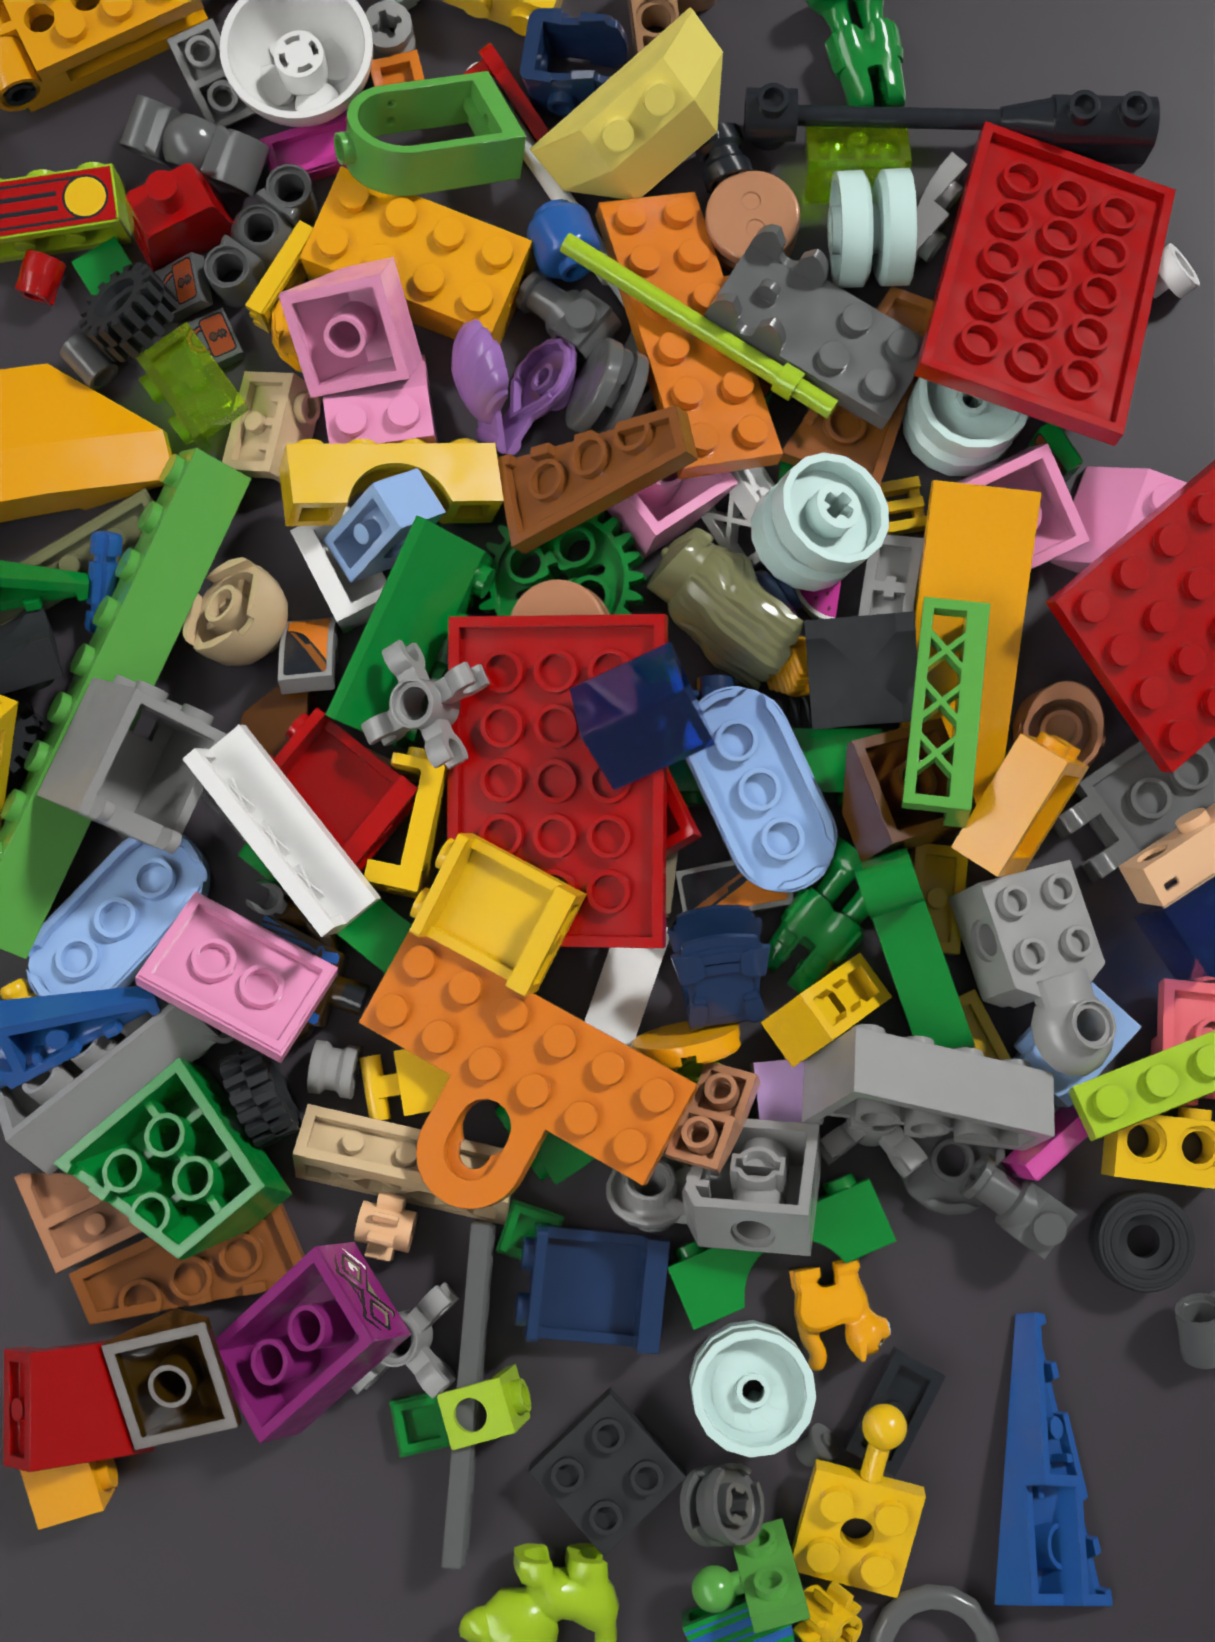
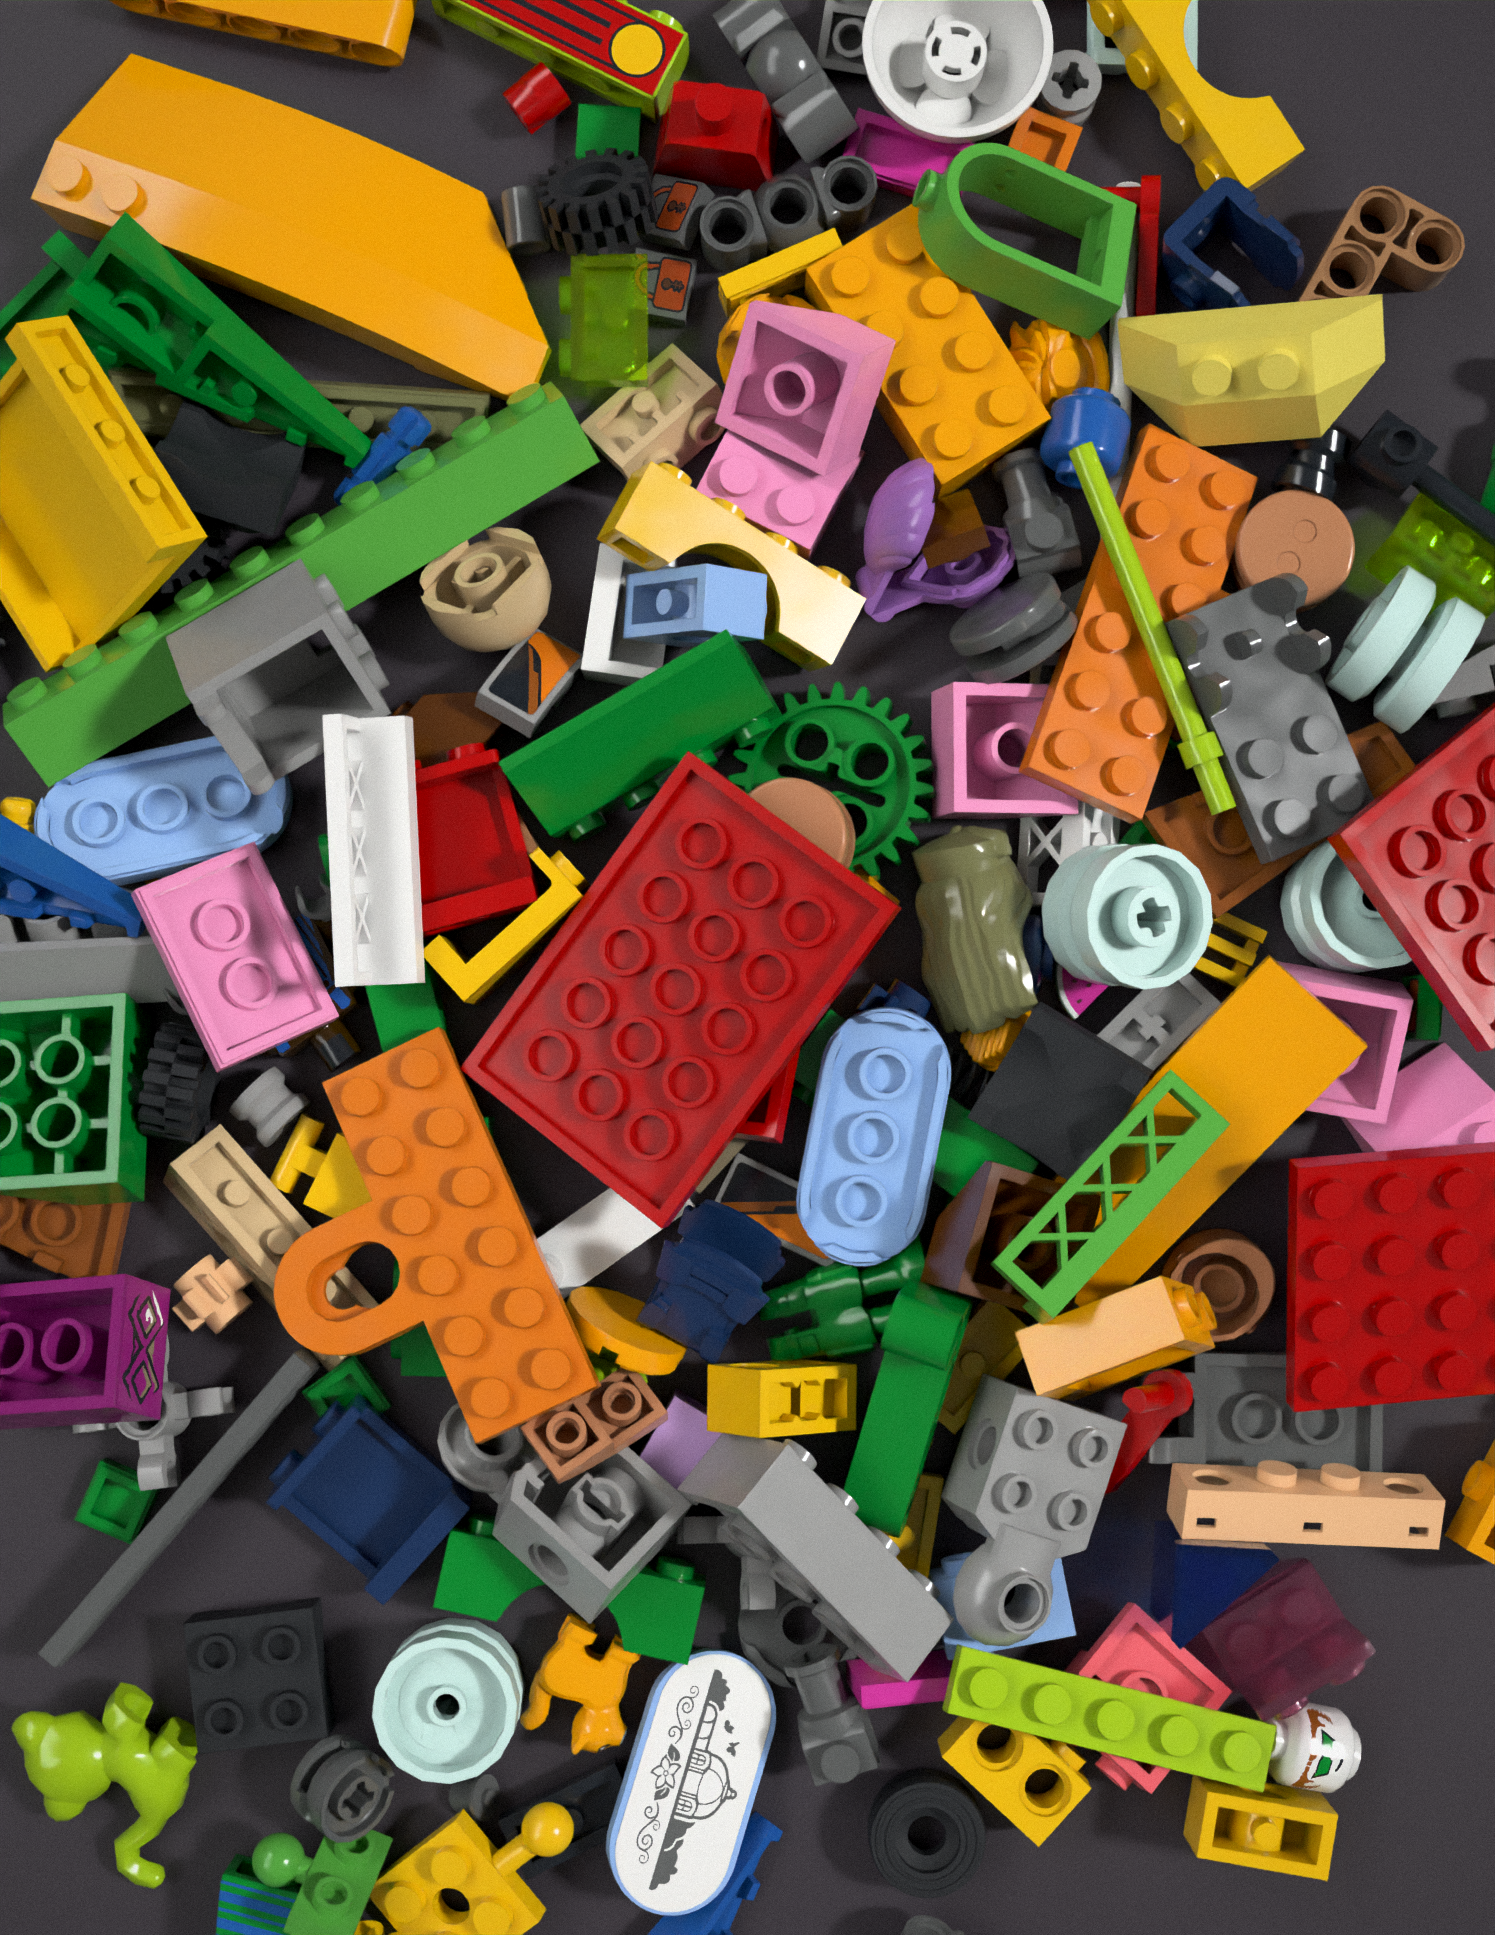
camera: 35 degrees right, 5 degrees up
(406, 699) = (578, 816): light grey pin -> none
(496, 911) = (528, 1075): yellow panel -> none
(505, 1402) = (206, 1542): lime bracket -> none
(508, 203) = (1058, 360): none -> light orange hat
(523, 354) = (954, 530): none -> reddish brown slope
(579, 479) = (913, 701): dark orange wing -> none
(640, 717) = (799, 990): clear blue slope -> none
(958, 1323) = (691, 1782): none -> white tile
(1078, 830) = (1152, 1408): none -> red piece

